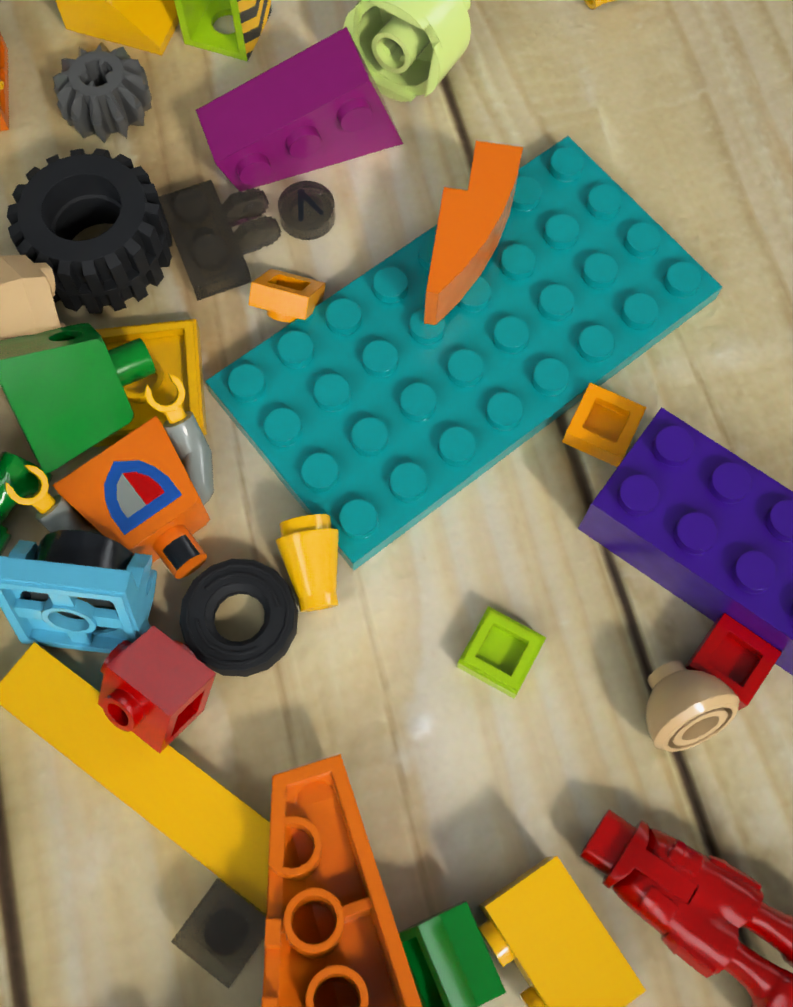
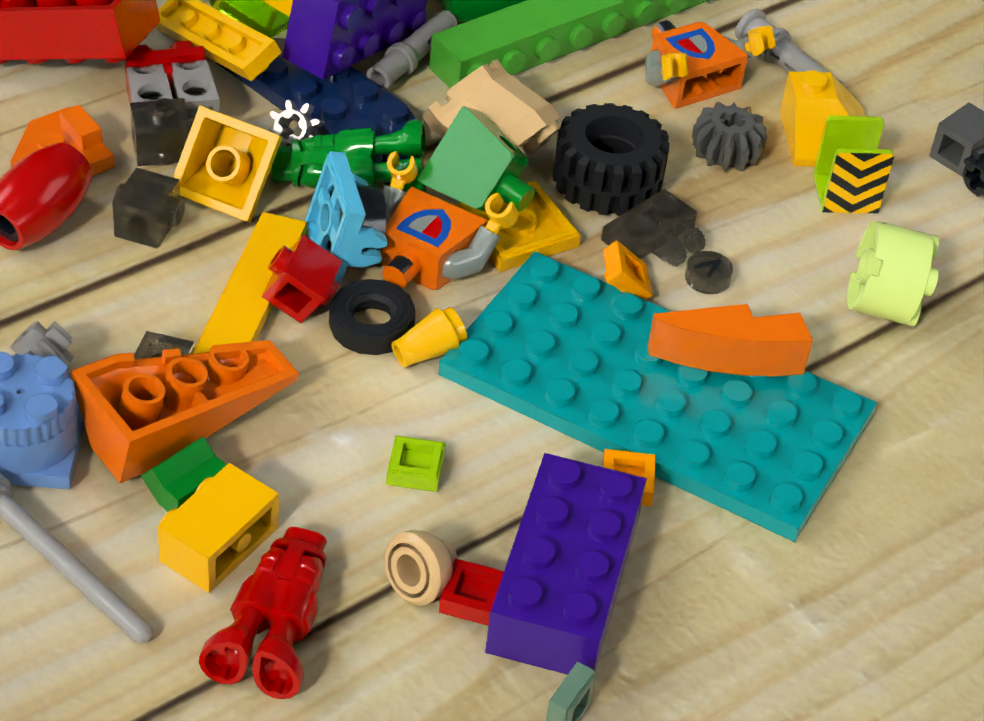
camera: 65 degrees right, 25 degrees down
(299, 116) = (780, 241): magenta wedge -> none

